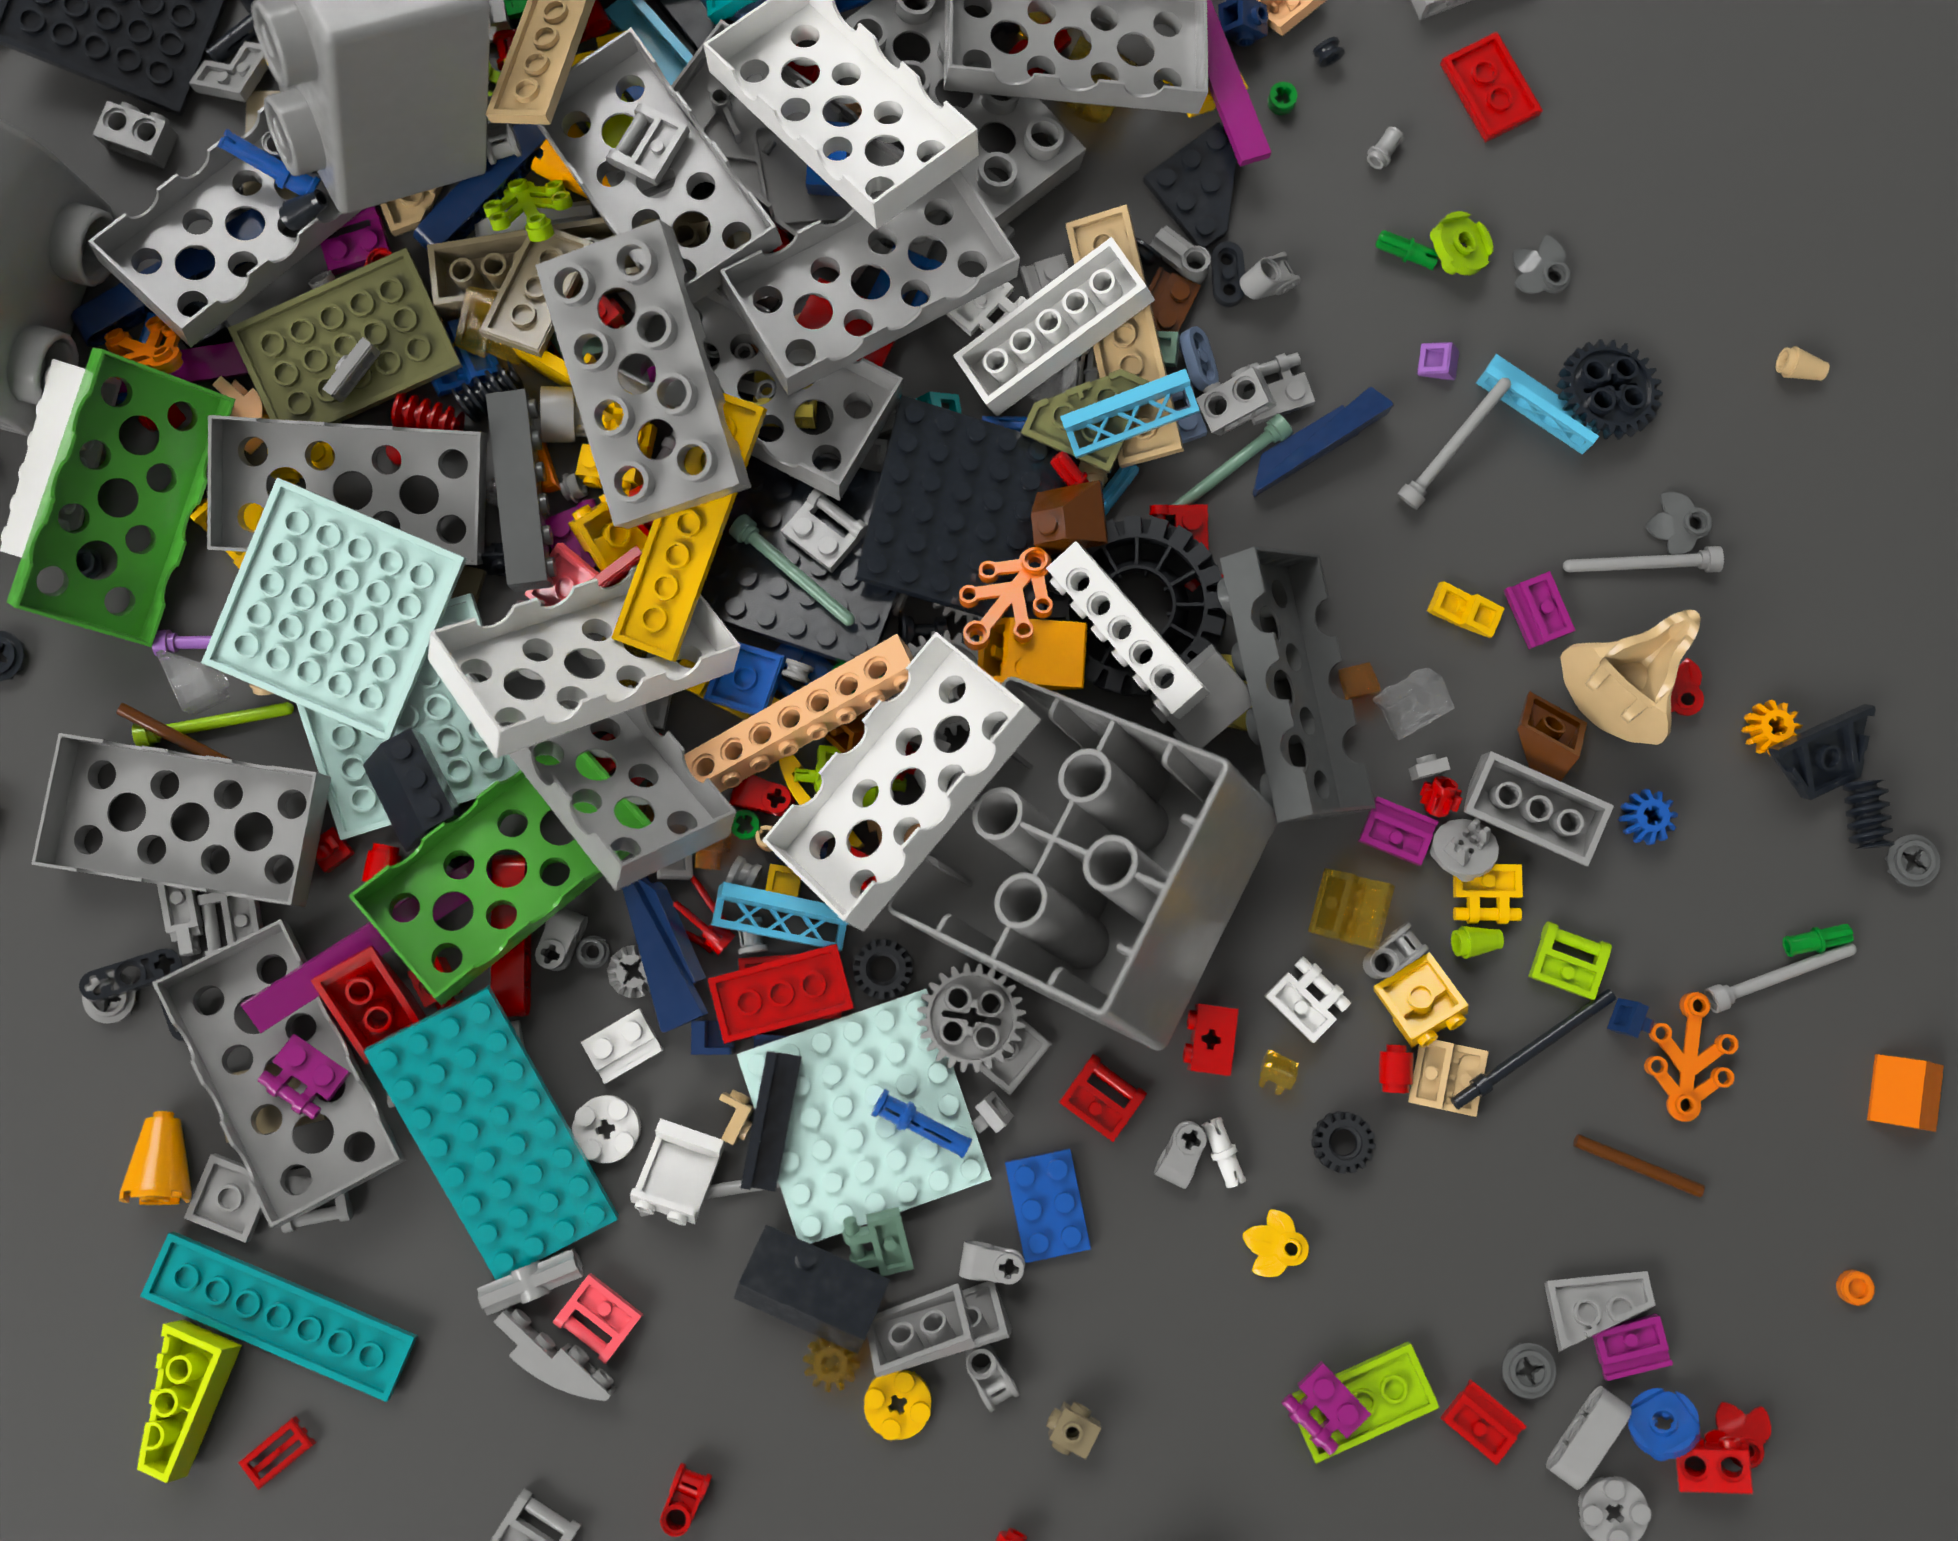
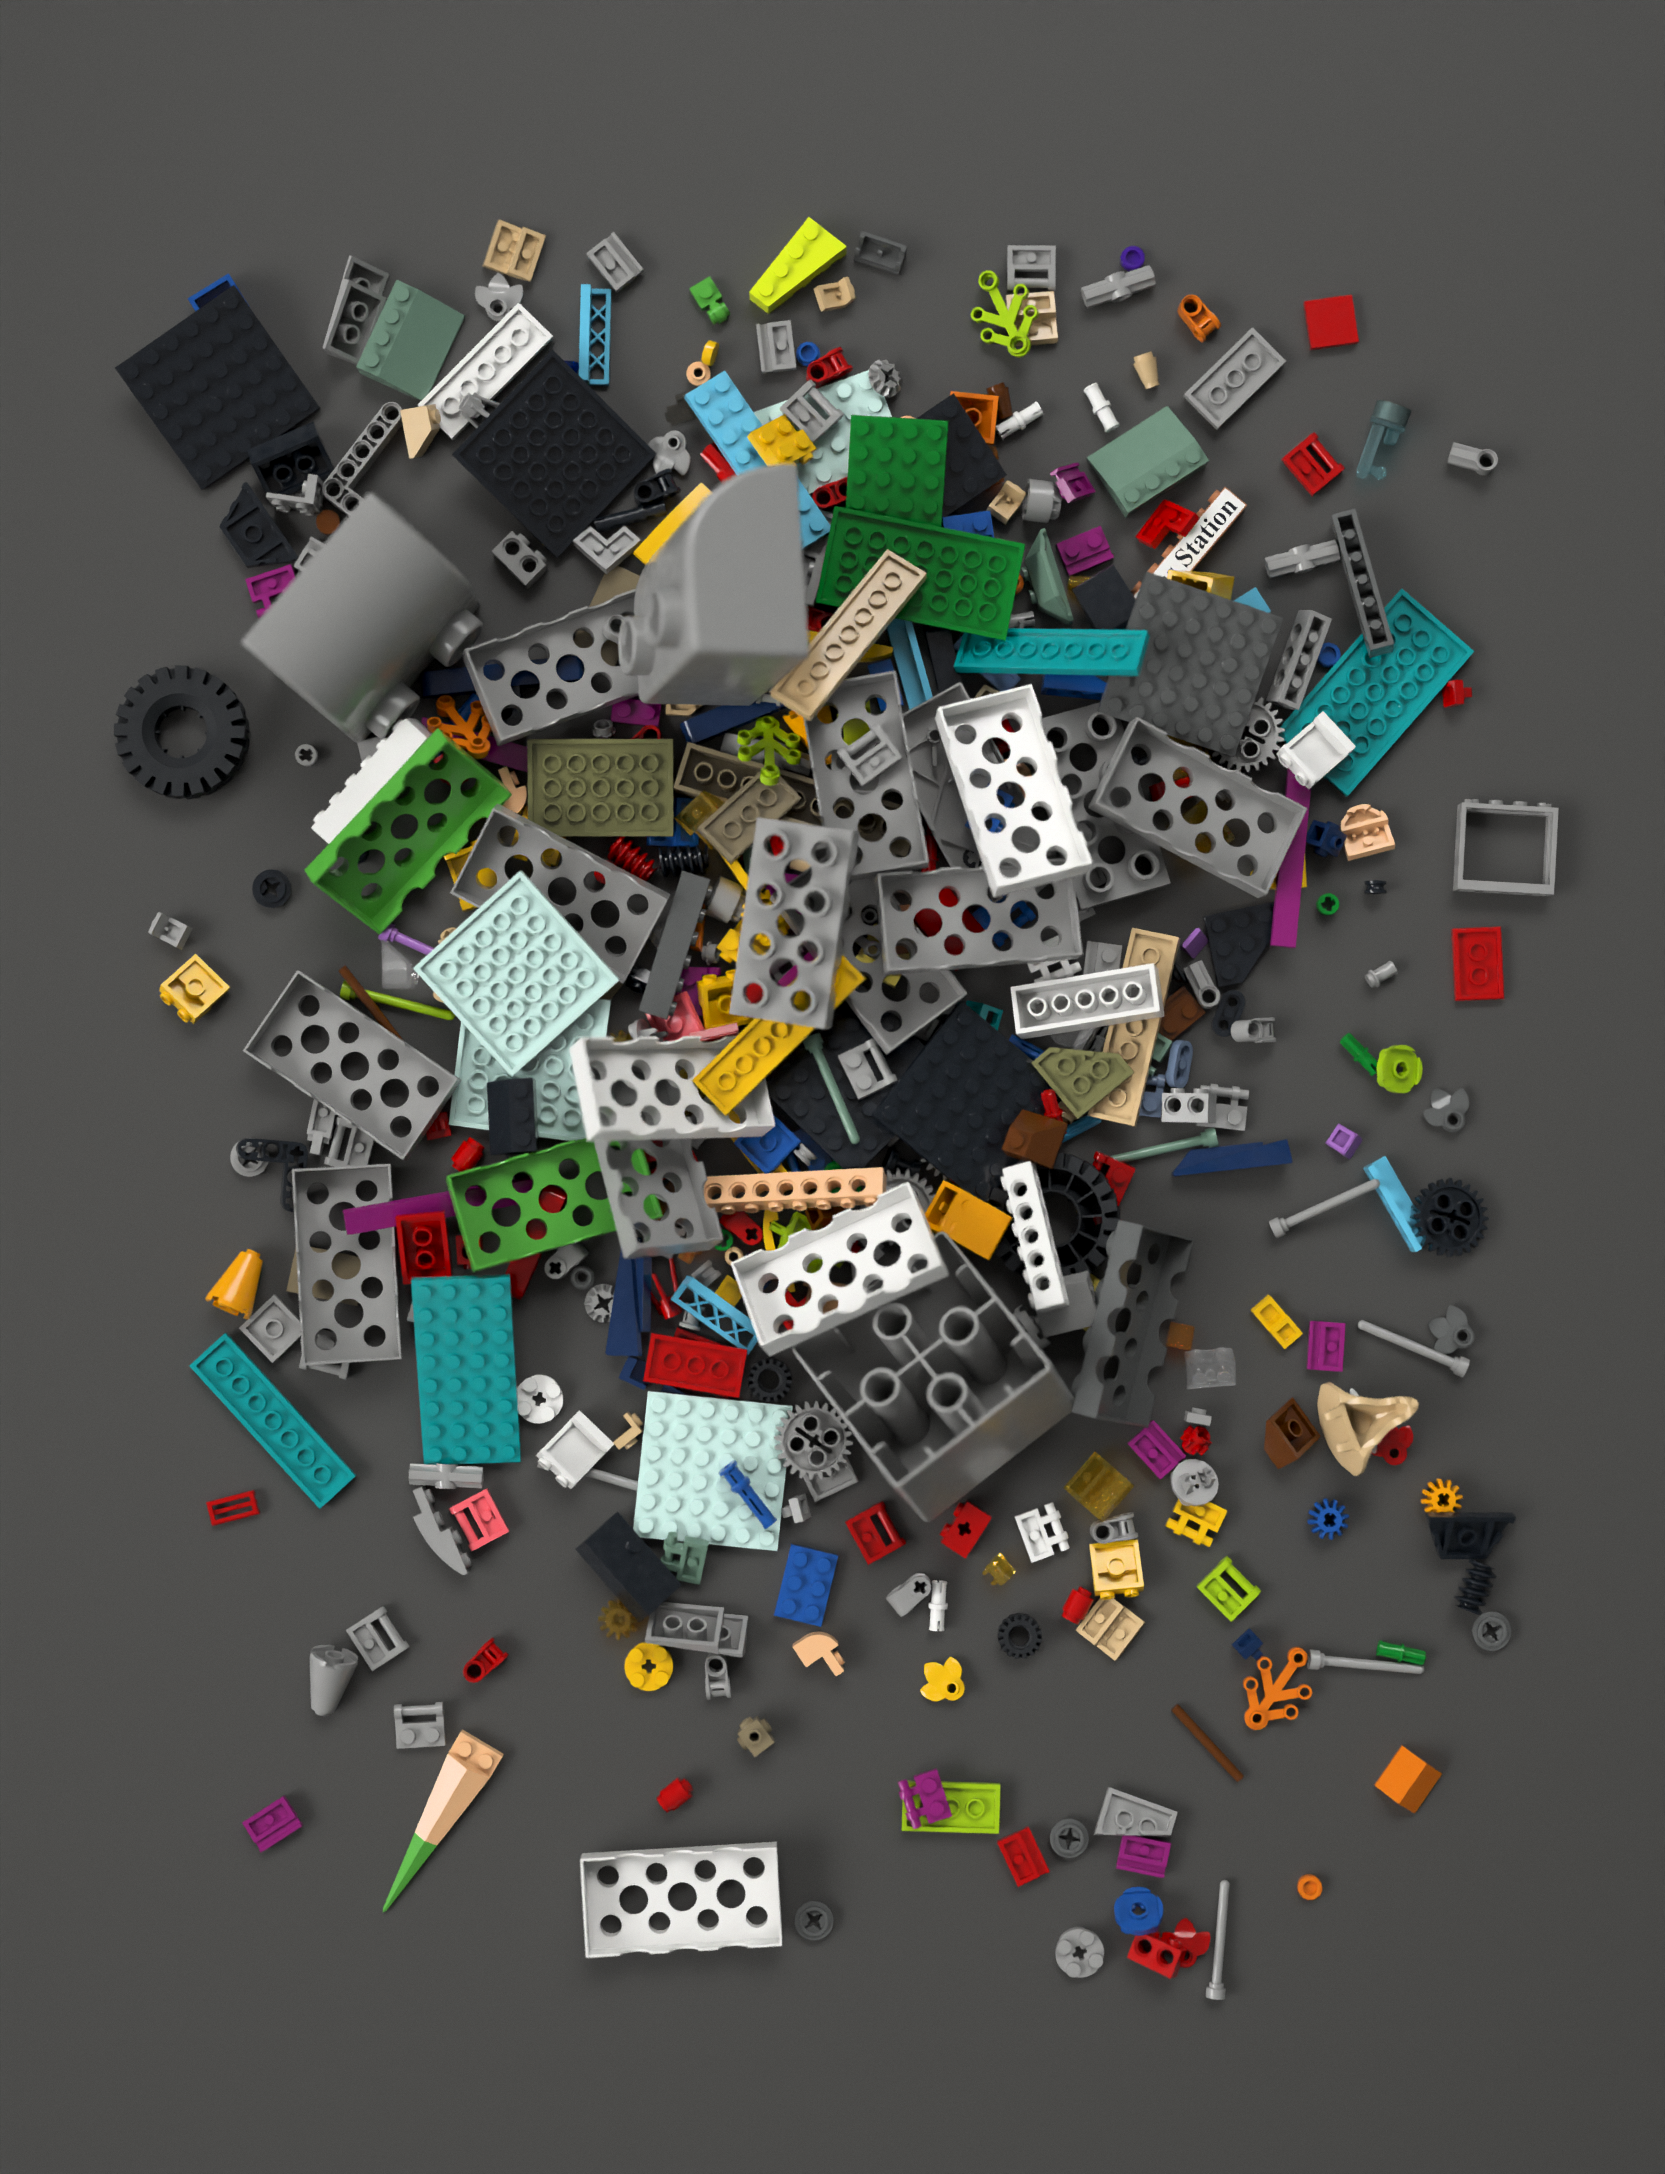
camera: 25 degrees right, 5 degrees up
(186, 1393) = (197, 1438): neon yellow wedge -> none
(267, 164) = (602, 635): blue pin -> none
(303, 209) = (613, 680): black cone -> none
(310, 1067) = (366, 1270): magenta plate -> none
(351, 369) = (598, 809): light grey plate -> none
(622, 1046) = (574, 1349): white plate -> none
(771, 1121) = (651, 1446): black fence -> none
(982, 1263) = (746, 1602): light grey piece -> none
(1008, 594) = (969, 1174): orange plant -> none
(1100, 1273) = (819, 1645): none -> light nougat brick
(1127, 401) = (1092, 1078): medium azure fence -> none
(1147, 212) = (1194, 943): none -> medium lavender slope
(1475, 941) = (1172, 1546): lime cone -> none
(1483, 1084) = (1129, 1641): black bar -> none
(1536, 807) = (1253, 1479): light grey slope -> none
(1588, 1437) = (1086, 1898): light grey beam -> none
(1801, 365) = (1589, 1261): tan cone -> none
(1806, 1477) = (1216, 1987): none -> light grey piece

